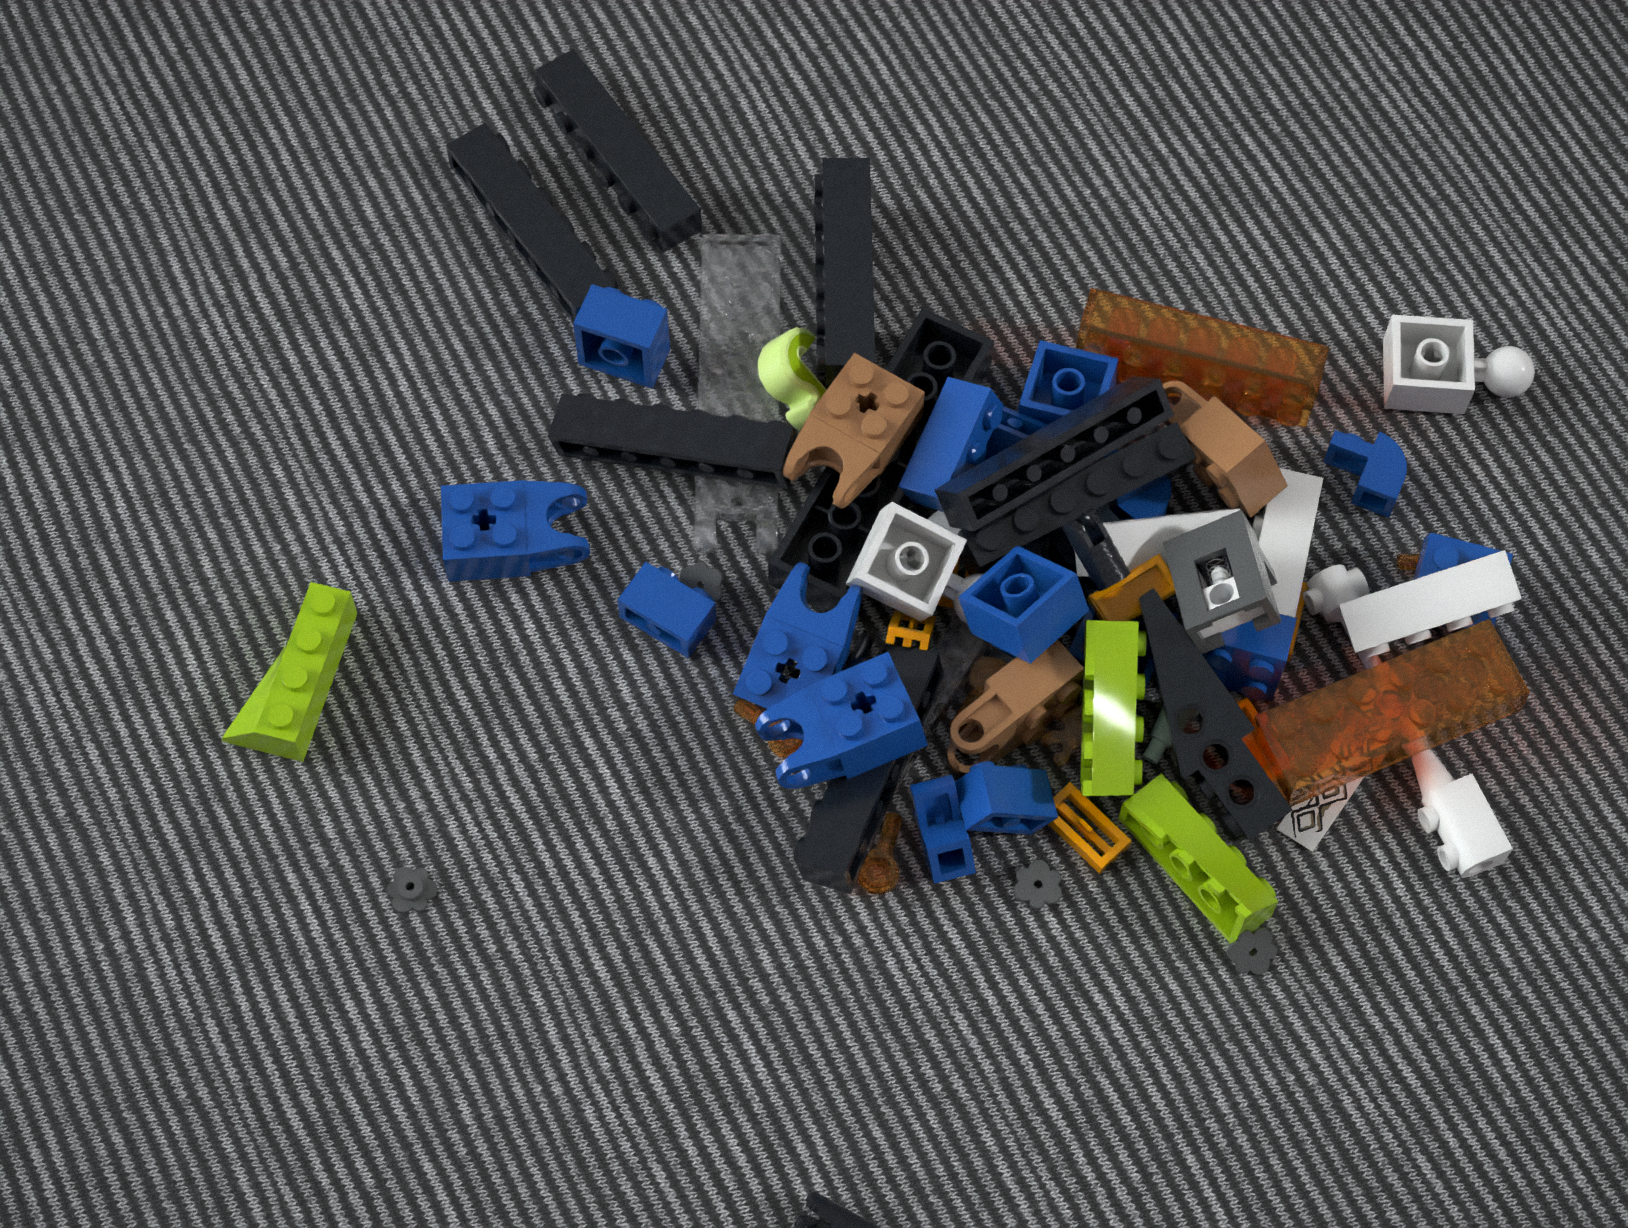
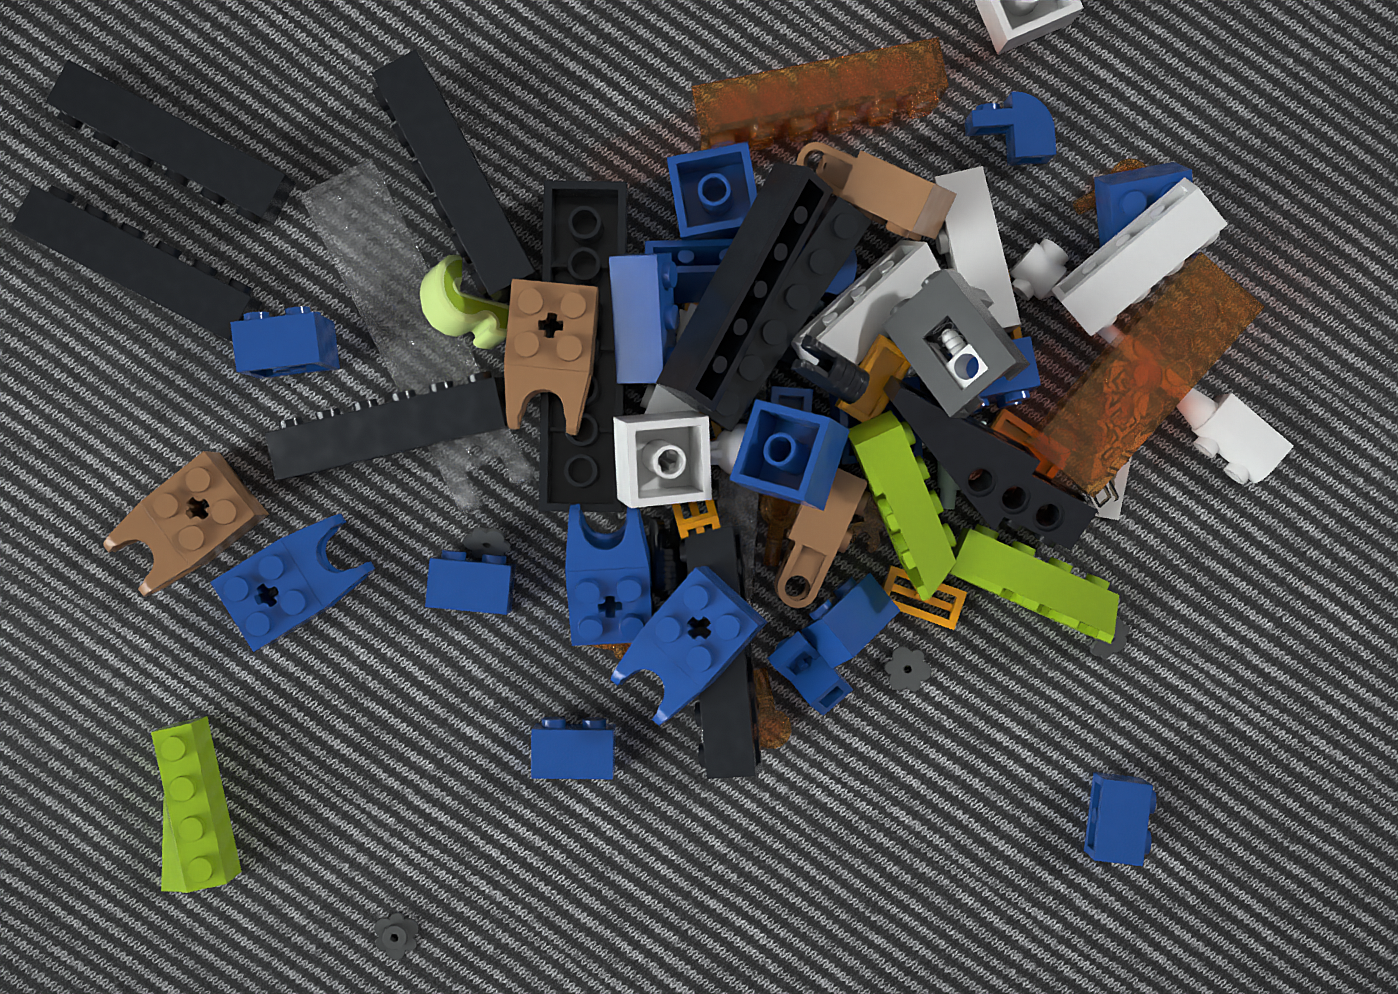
camera: 30 degrees left, 25 degrees up
(447, 438) = (176, 528): none -> medium nougat brick
(679, 796) = (573, 749): none -> blue brick
(1180, 1123) = (1119, 819): none -> blue brick

